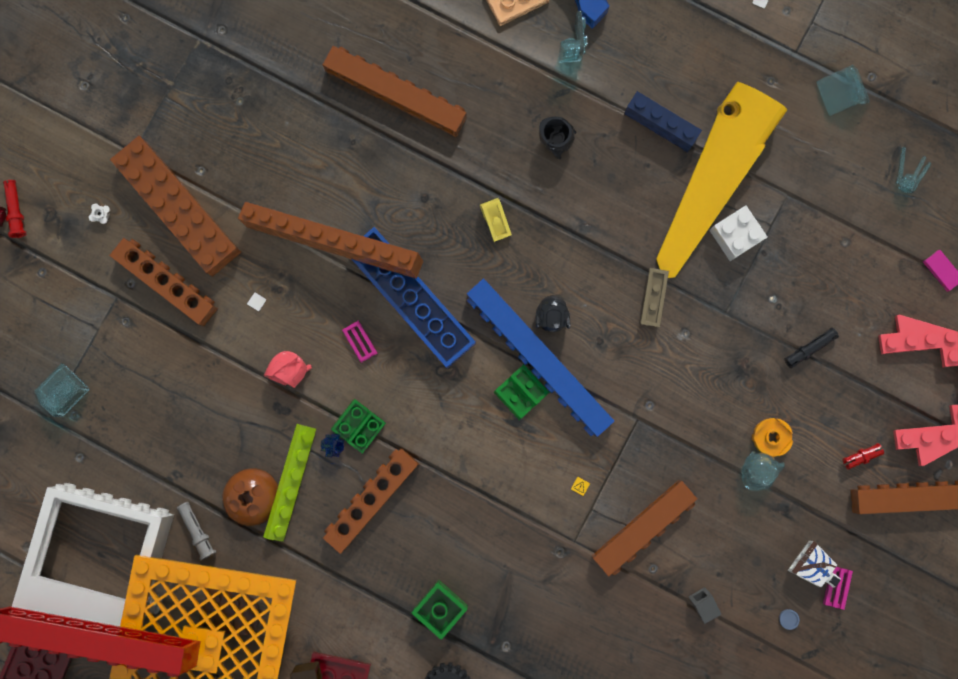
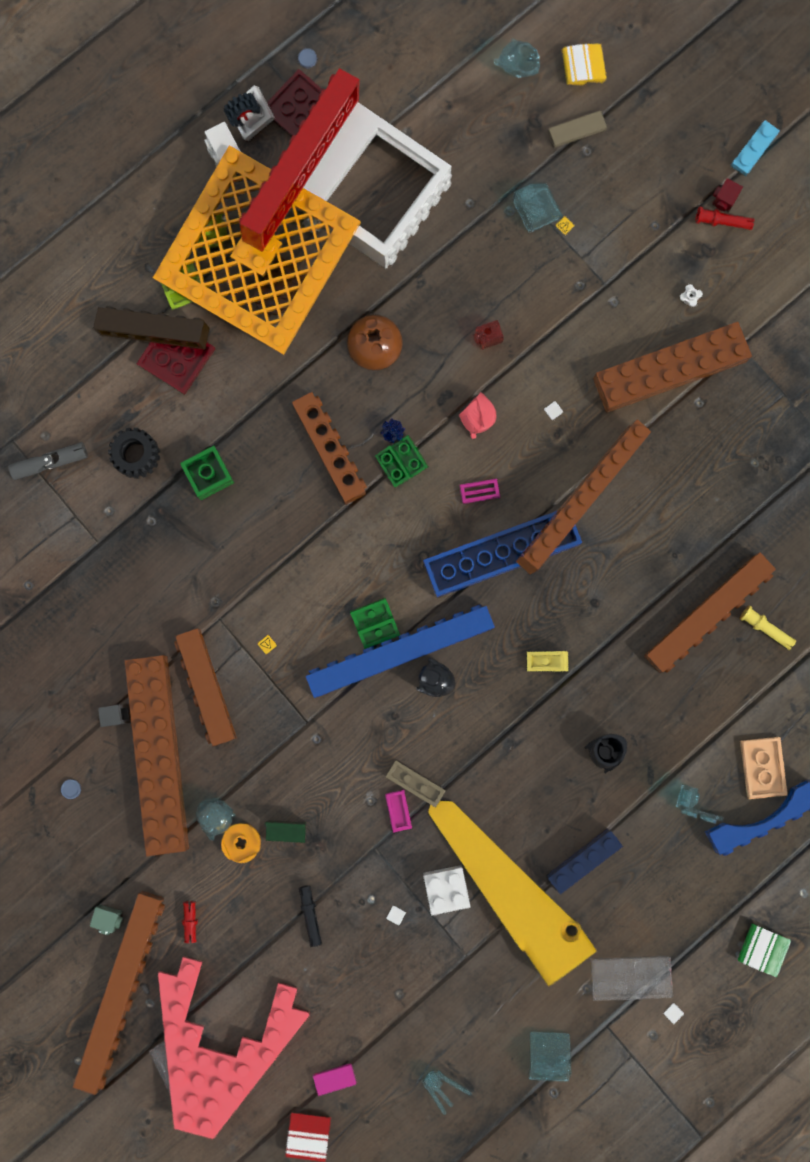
camera: 110 degrees right, 0 degrees up
(70, 357) = (564, 225): none -> yellow sticker
(124, 255) = (642, 303): dark orange brick -> none
(200, 539) = (354, 283): light grey pin -> none
(205, 389) = (488, 335): none -> clear red brick
(289, 483) = (373, 381): lime plate -> none
(387, 43) = (760, 622): none -> light yellow pin
(684, 304) = (398, 811): none -> dark pink tile
(725, 549) = (156, 755): none -> dark orange brick
(745, 400) = (285, 831): none -> dark green panel
(746, 45) = (631, 978): none -> clear plate
(777, 271) = (396, 915): none -> white sticker
(815, 566) = (107, 831): torso -> none
(845, 588) = (75, 852): dark pink tile -> none
(893, 535) = (106, 919): none -> sand green brick

